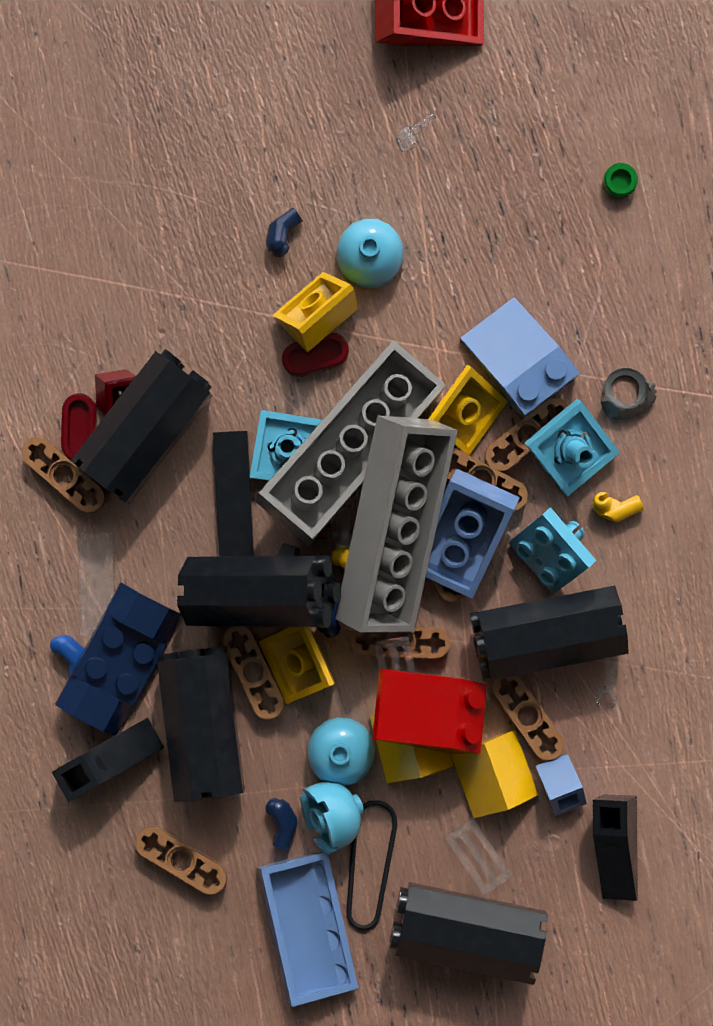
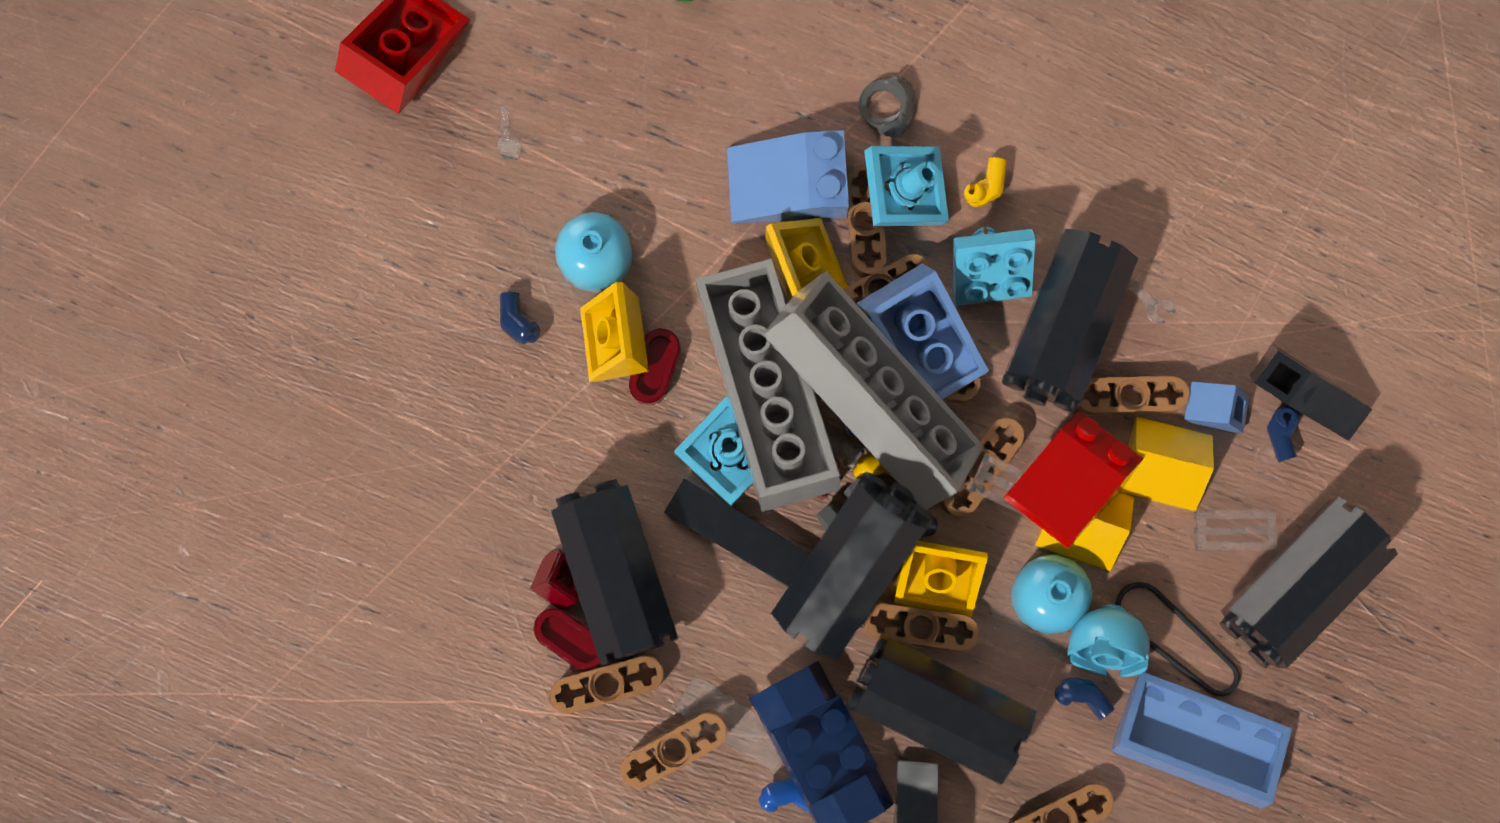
camera: 70 degrees left, 5 degrees down
(33, 534) = (643, 753): none -> medium nougat beam
(575, 843) = (1281, 430): none -> dark blue arm

